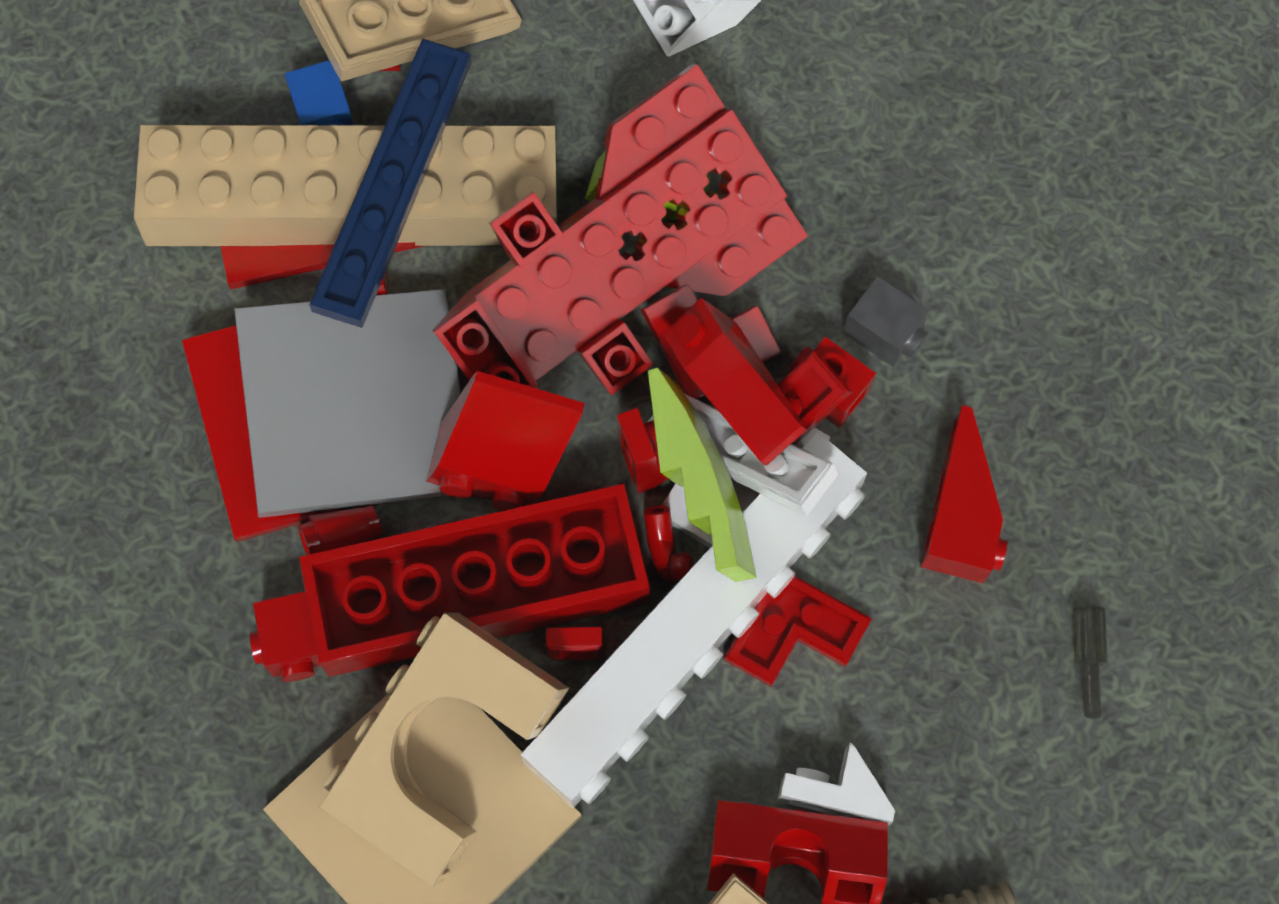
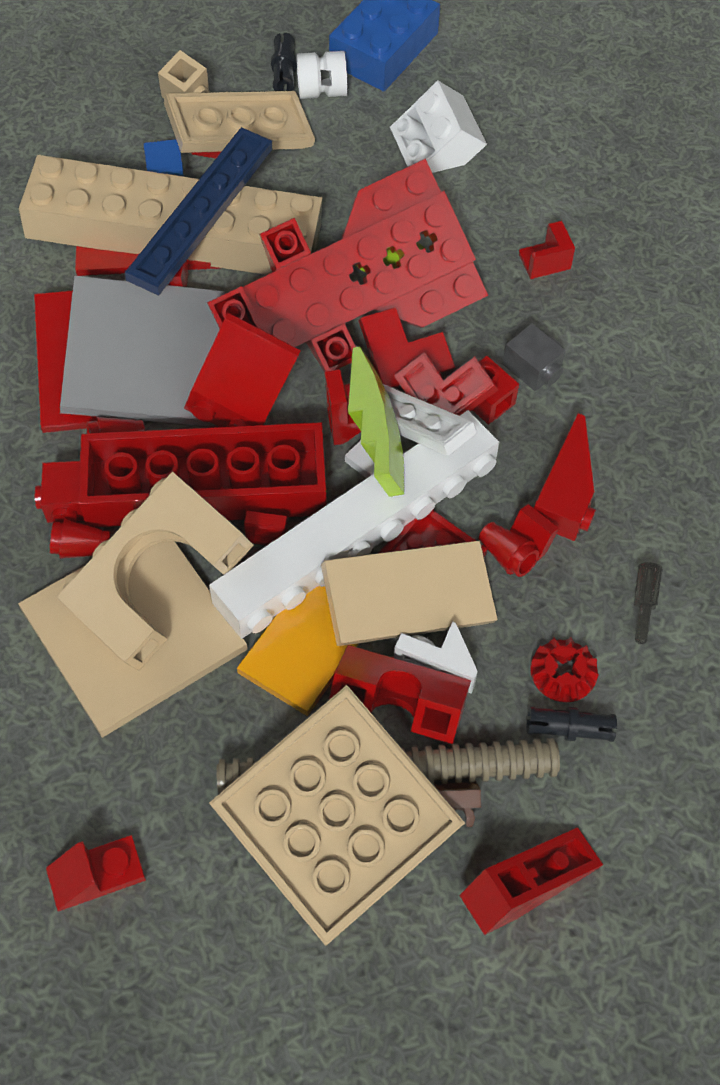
camera: 10 degrees right, 10 degrees down
(323, 702) = (75, 539): none -> red cone
(661, 544) = (343, 471): red arm -> none
(667, 793) = (296, 653): none -> light orange tile
(734, 379) = (413, 363): red slope -> none
(783, 711) = (408, 592): none -> tan tile
(879, 154) = (549, 257): none -> red panel
(901, 615) = (510, 550): none -> red cone
(929, 587) = (535, 528): none -> red tile
(975, 778) = (564, 687): none -> red gear
(1024, 853) = (571, 724): none -> black pin

